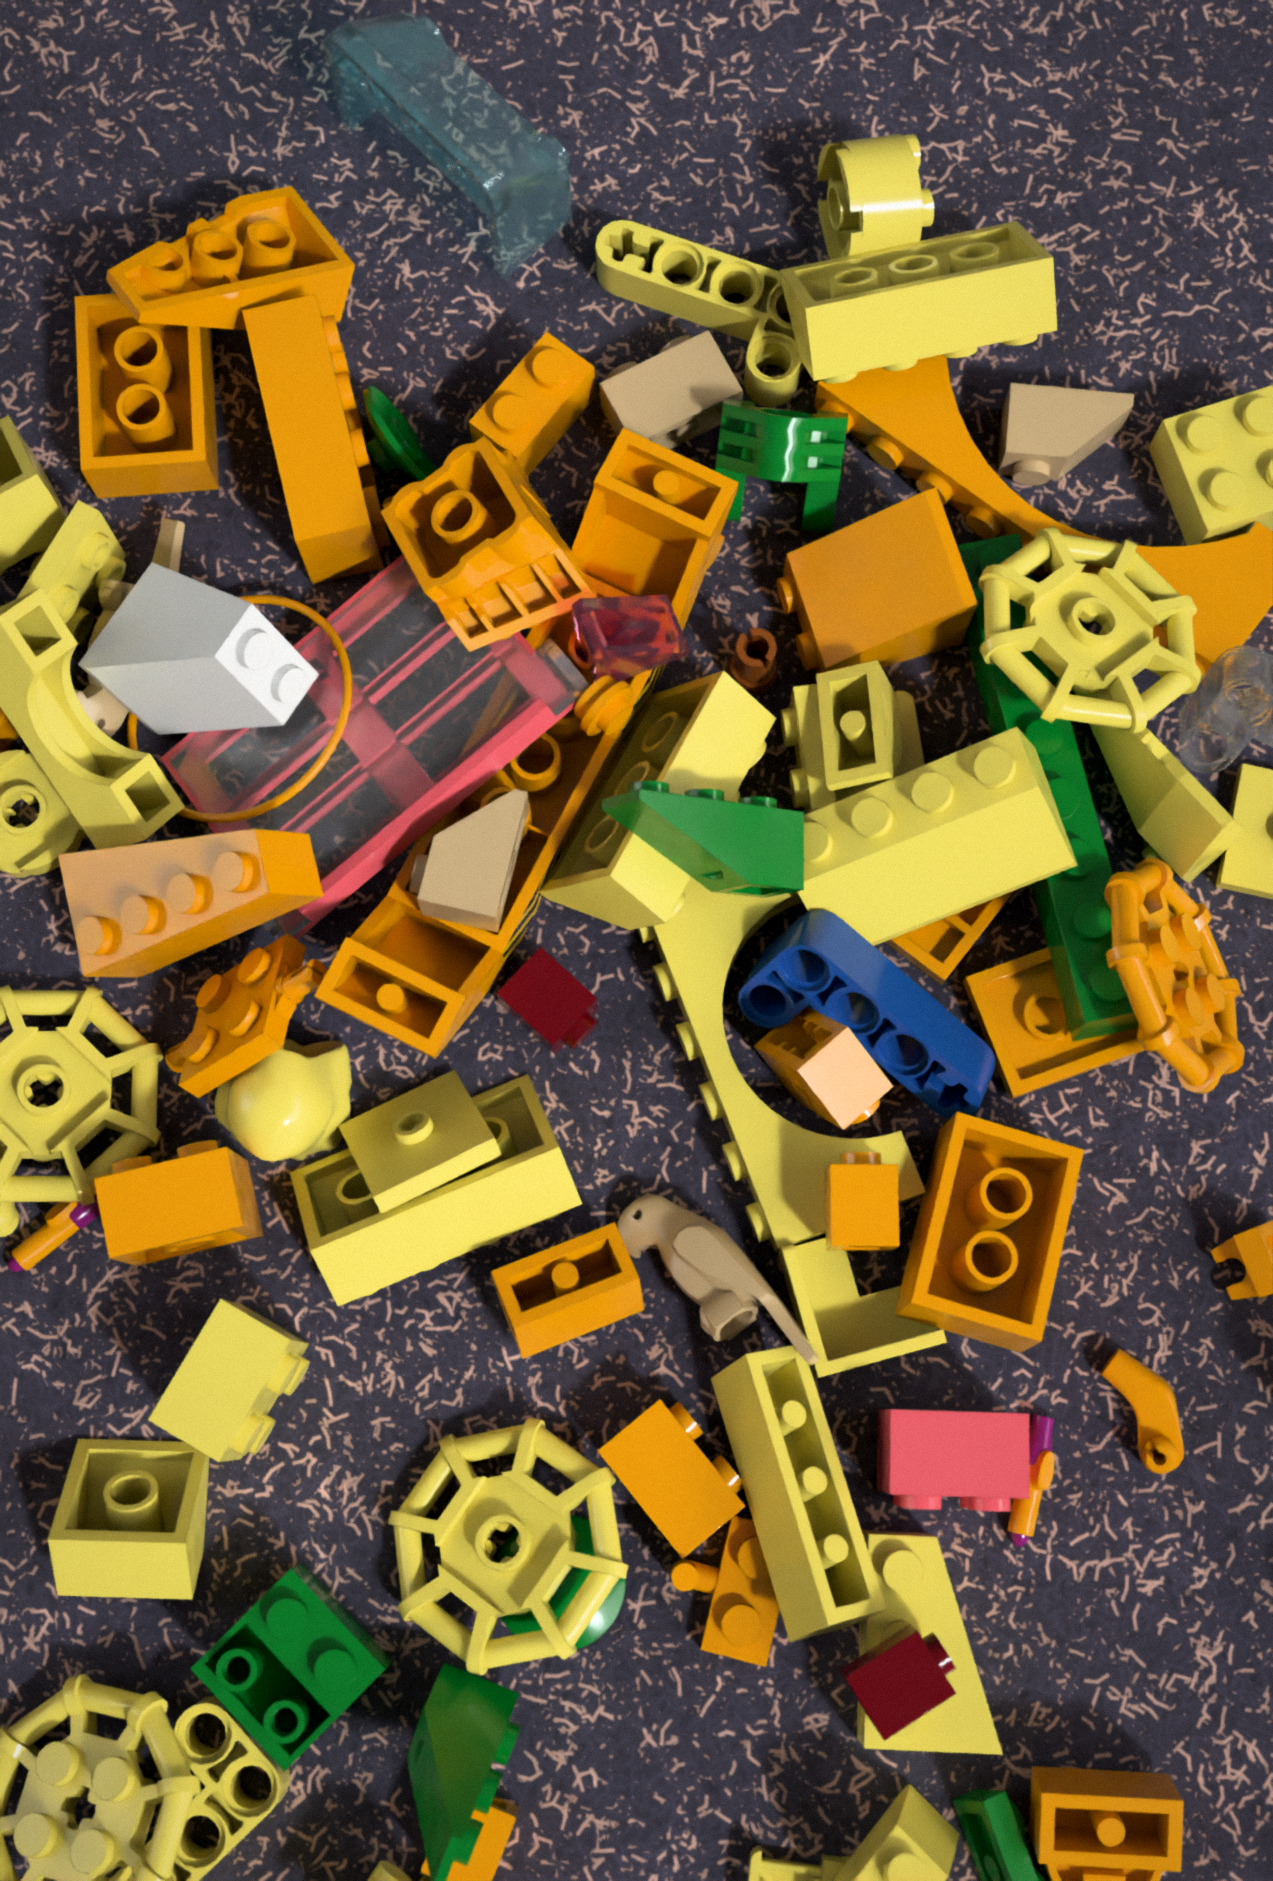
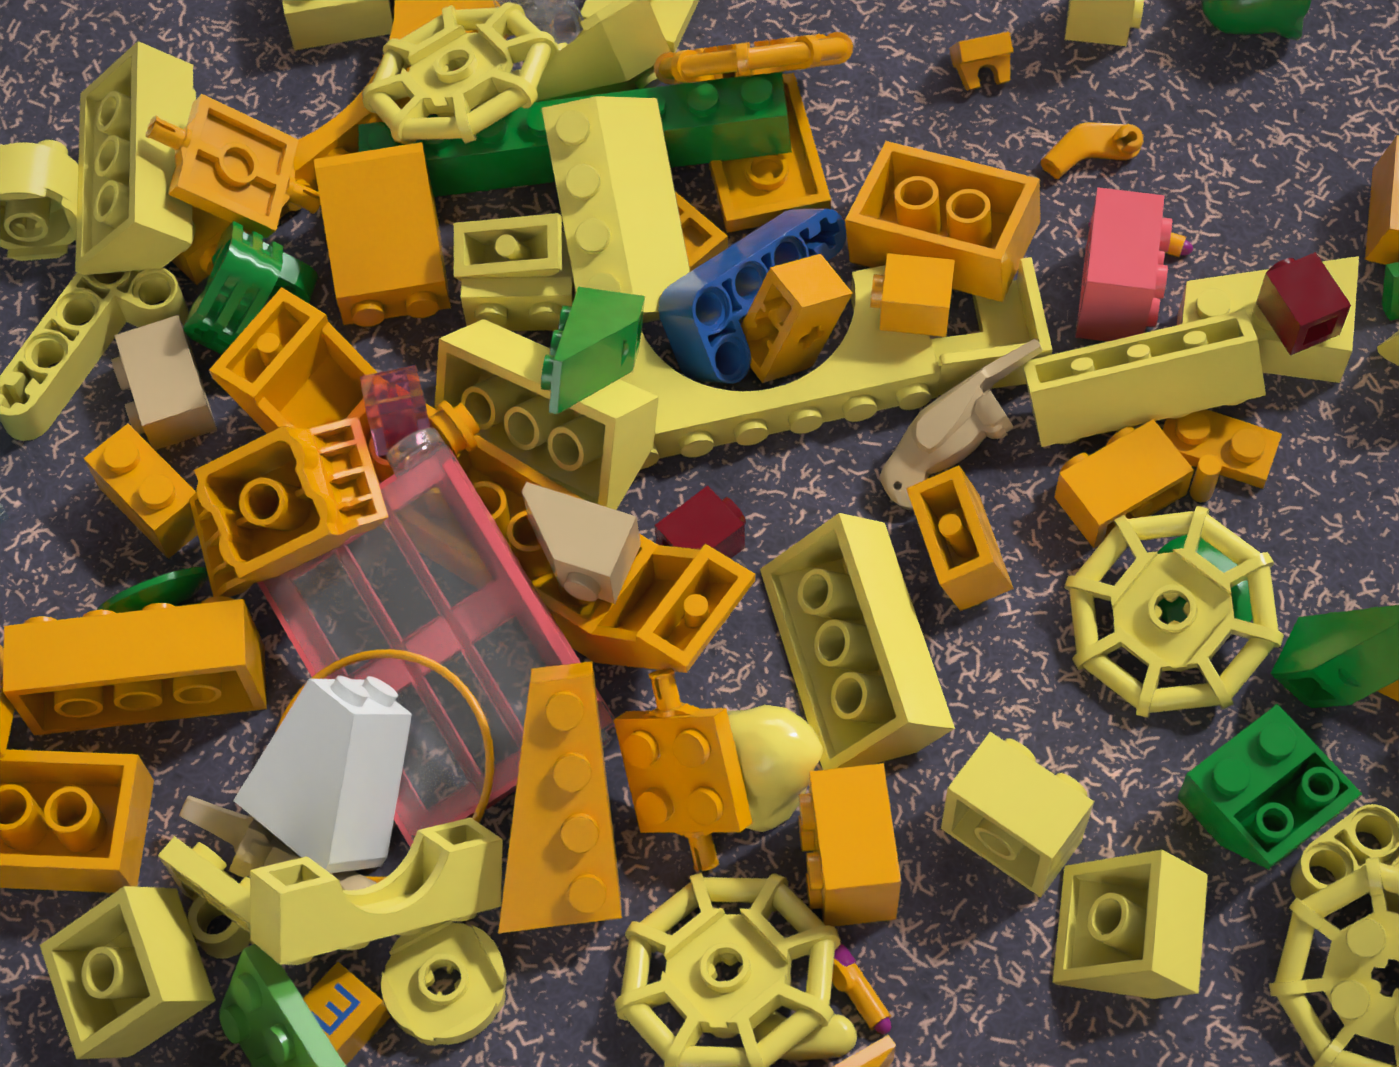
camera: 80 degrees left, 15 degrees down
(419, 1141) = (814, 641): light yellow plate -> none
(755, 662) = (422, 339): dark orange pin -> none
(921, 401) = (233, 166): none -> light orange plate
(1055, 429) = (269, 92): tan slope -> none

